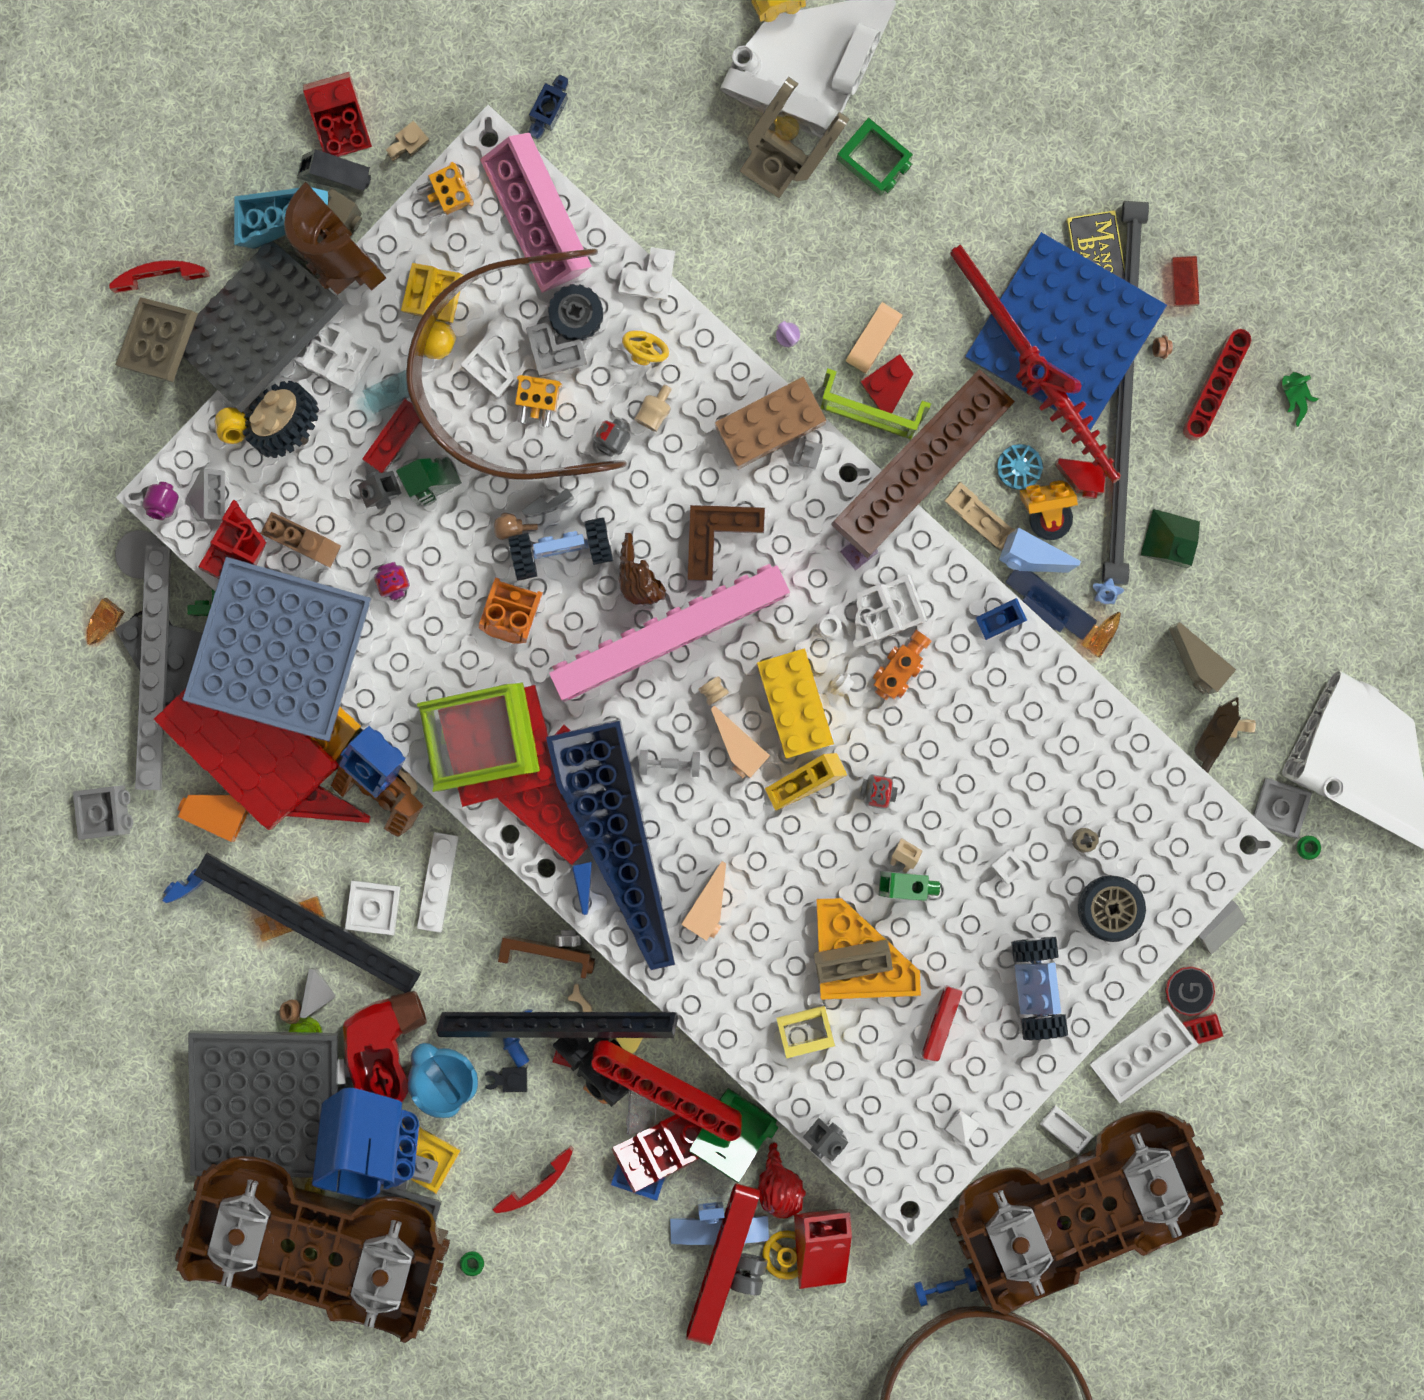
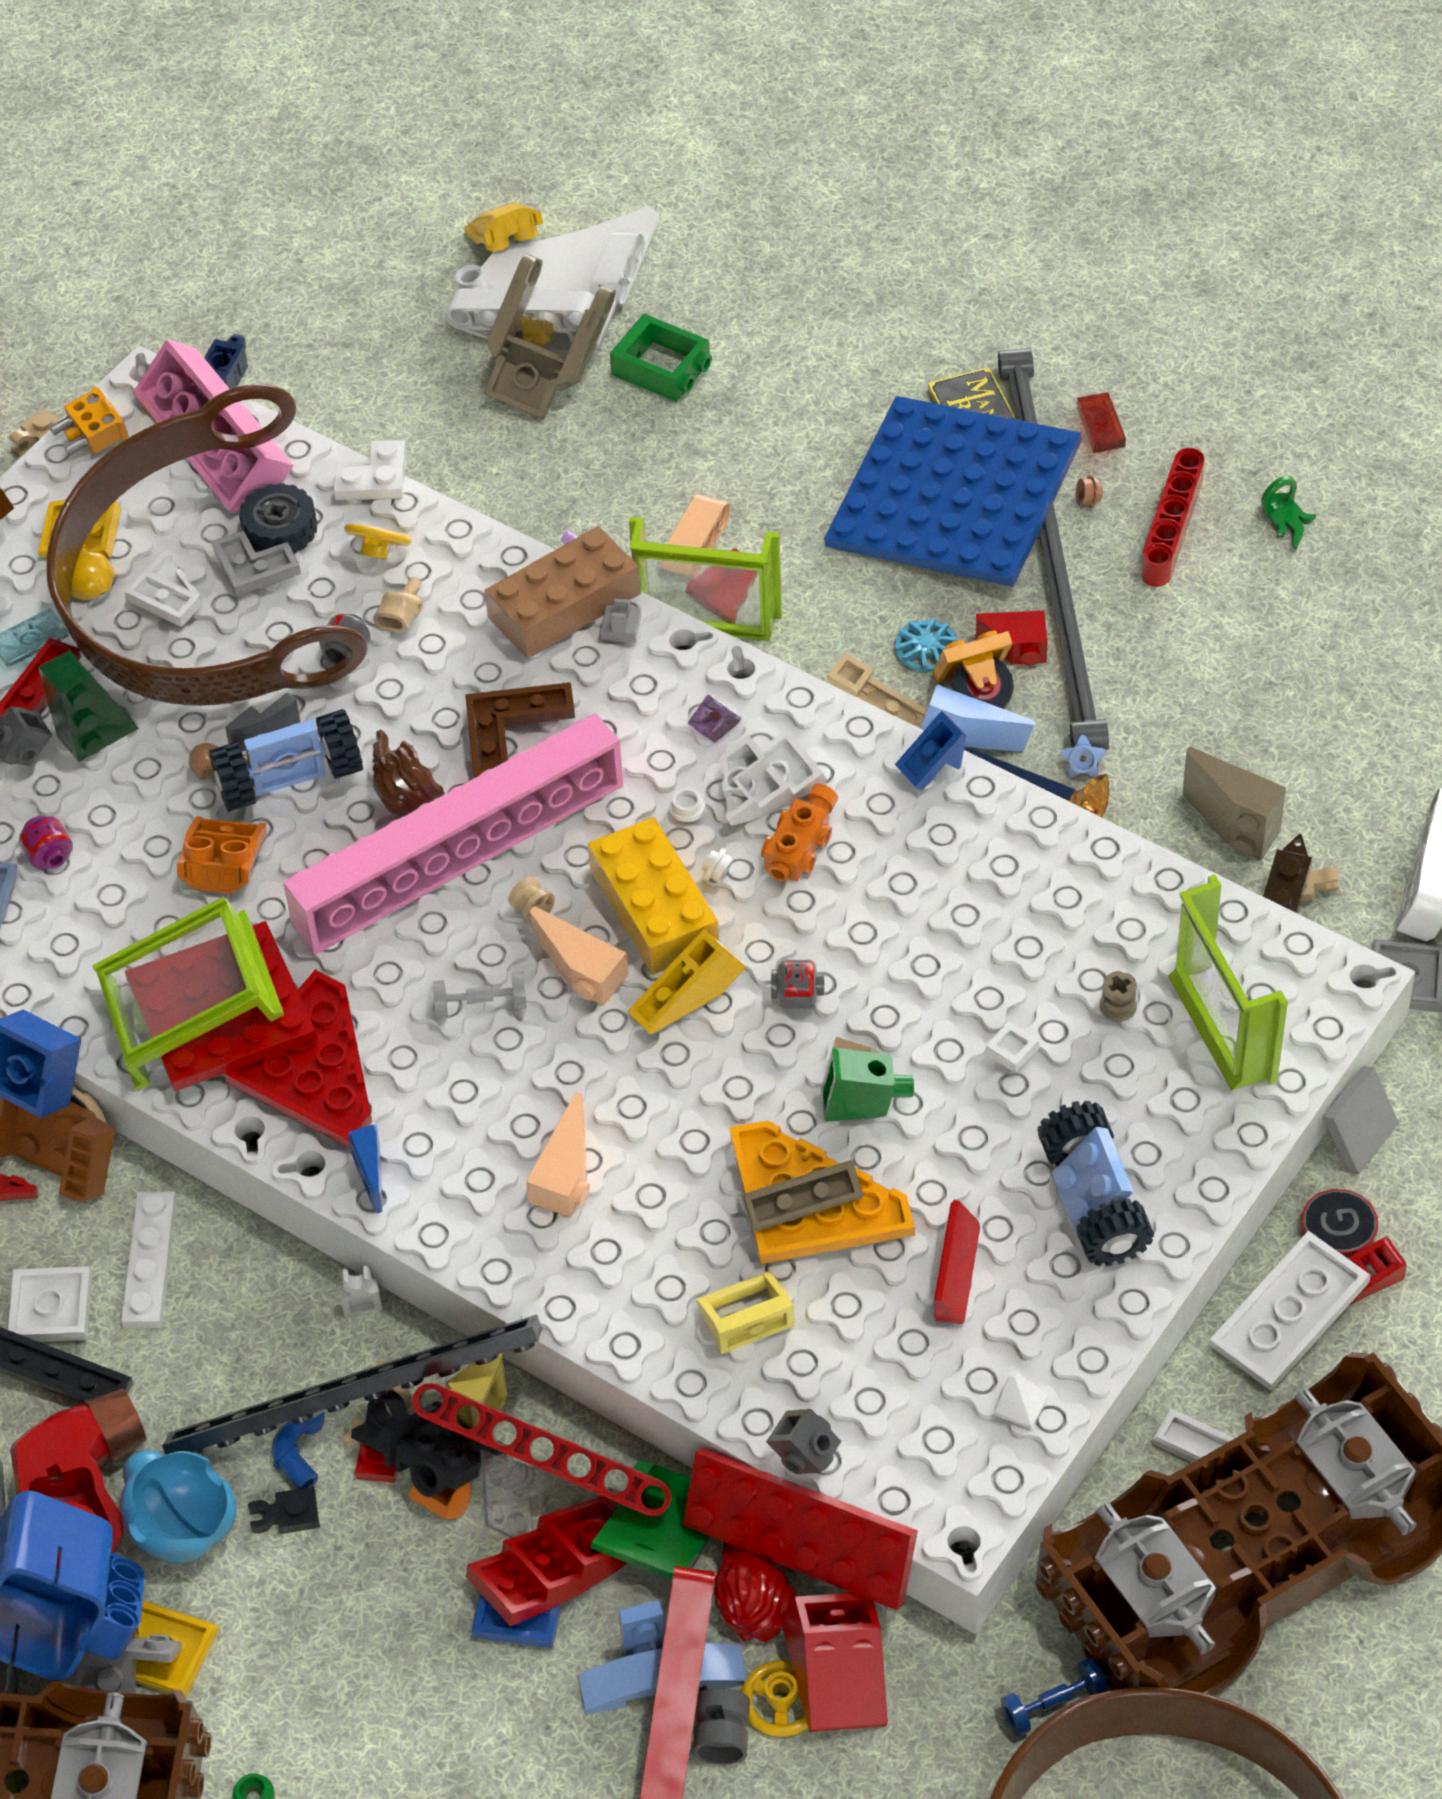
camera: 10 degrees left, 35 degrees down
(512, 943) = (326, 1306): reddish brown panel -> none
(513, 1202) = (311, 1684): red slope -> none
(537, 386) = (235, 612): light orange piece -> none
(602, 796) = (385, 1042): dark blue wedge -> none
(813, 1173) = (800, 1528): none -> red plate
(922, 463) = (782, 621): reddish brown plate -> none
(1054, 381) = (927, 518): red piece -> none
(1127, 902) = (1179, 1071): wheel -> none
(1143, 866) = (1238, 1032): none -> lime piece
(1171, 539) = (1156, 693): dark green slope -> none

